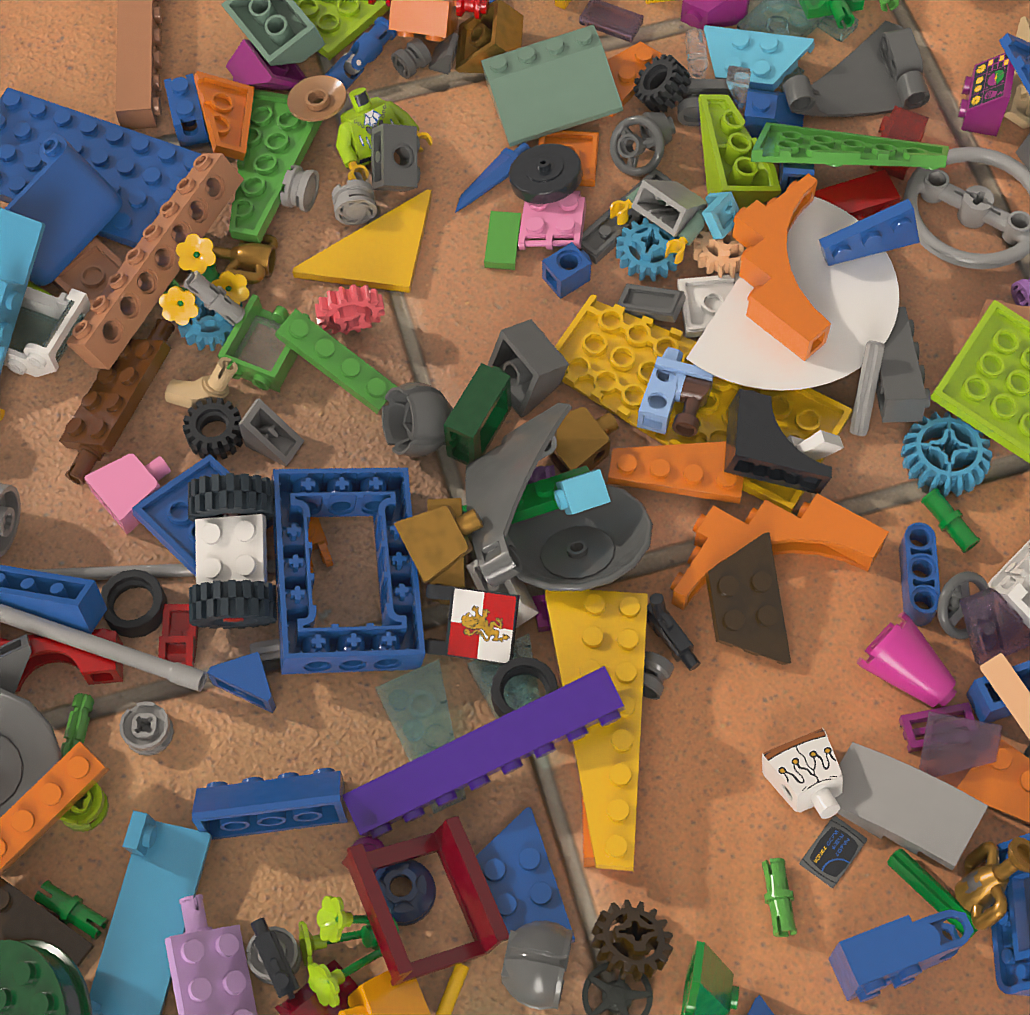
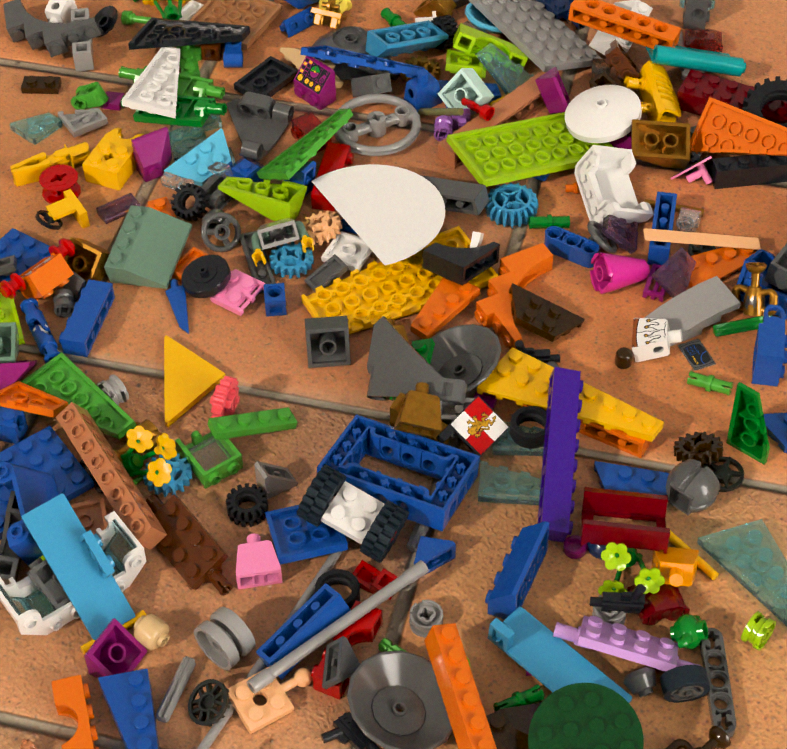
camera: 60 degrees left, 15 degrees down
(214, 298) = (170, 451): light grey pin -> none
(215, 385) = (216, 496): tan arm -> none
(317, 98) = (62, 349): medium nougat dish -> none
(354, 202) = (147, 370): light grey wheel -> none
(356, 125) = (106, 338): lime torso -> none
(386, 173) = (136, 335): dark grey brick -> none
(415, 419) = (319, 413): dark grey piece -> none
(417, 89) = (87, 318): none -> blue brick
(478, 414) = (344, 373): dark green window -> none
(502, 240) = (228, 320): bright green tile -> none
(581, 492) = (435, 341): medium azure brick -> none
(673, 382) = (396, 285): light blue hips -> none
(720, 213) = (301, 212): medium azure bracket -> none
(750, 752) = (623, 358): none -> dark brown piece
(776, 298) = (382, 211): orange arch -> none
(866, 388) = (455, 209): light grey axle -> none
(875, 234) = (373, 158): blue wing -> none
(959, 35) = (266, 78): none -> black plate

